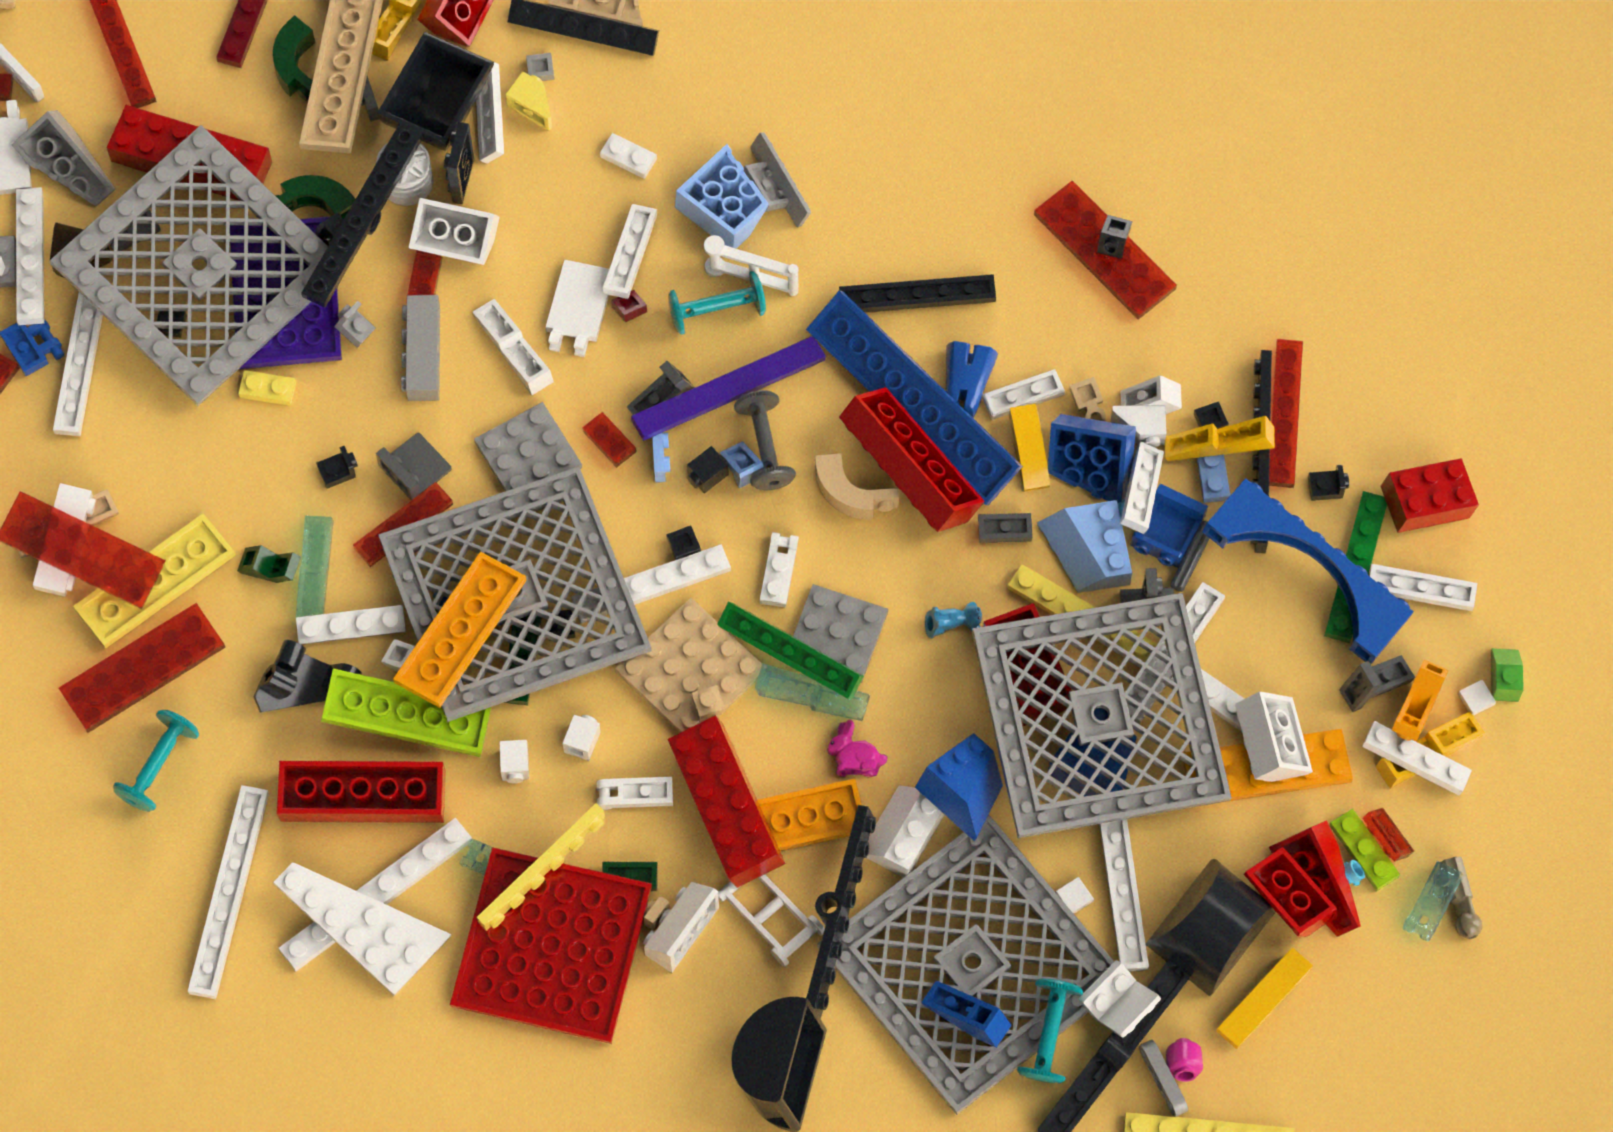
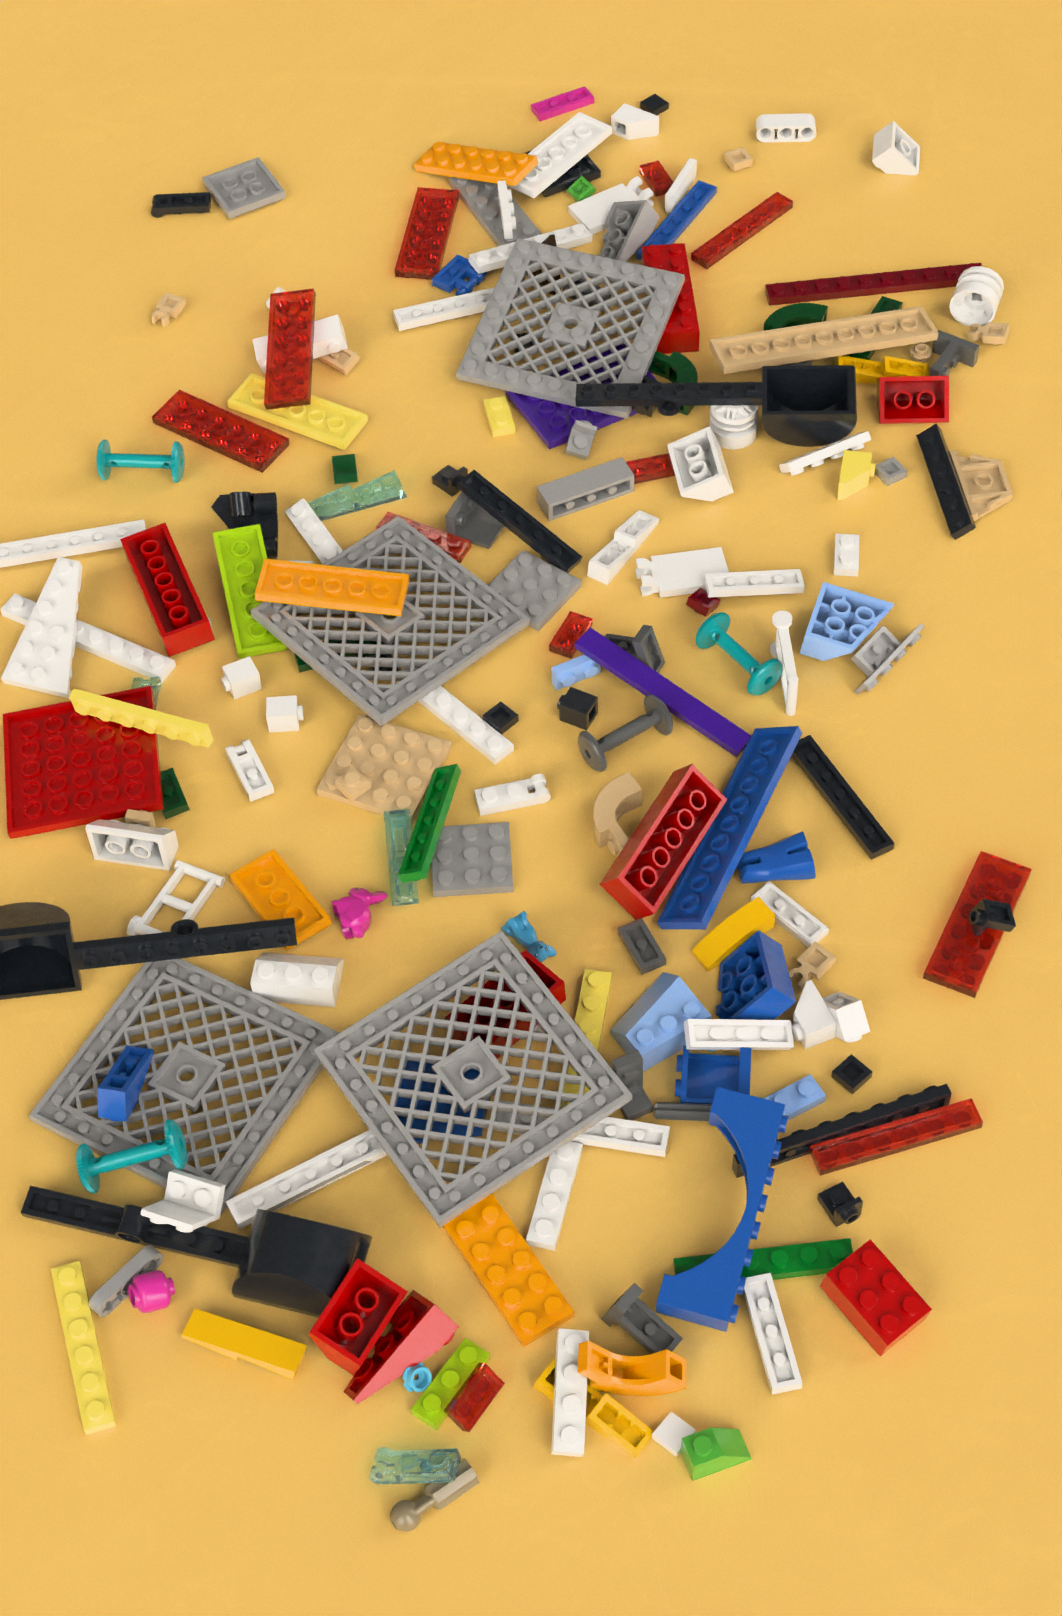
camera: 70 degrees right, 15 degrees down
(63, 96) = (681, 215): none -> blue tile
(448, 425) = (519, 521): none -> black plate
(459, 162) = (757, 439): black plate -> none
(726, 801) = (261, 828): red brick -> none
(742, 463) = (596, 724): medium blue slope -> none
(963, 784) = (349, 990): blue wedge -> none
(1075, 895) = (290, 1139): white tile -> none
(1210, 441) = (823, 1077): yellow slope -> none
(1273, 737) = (526, 1243): white slope -> none

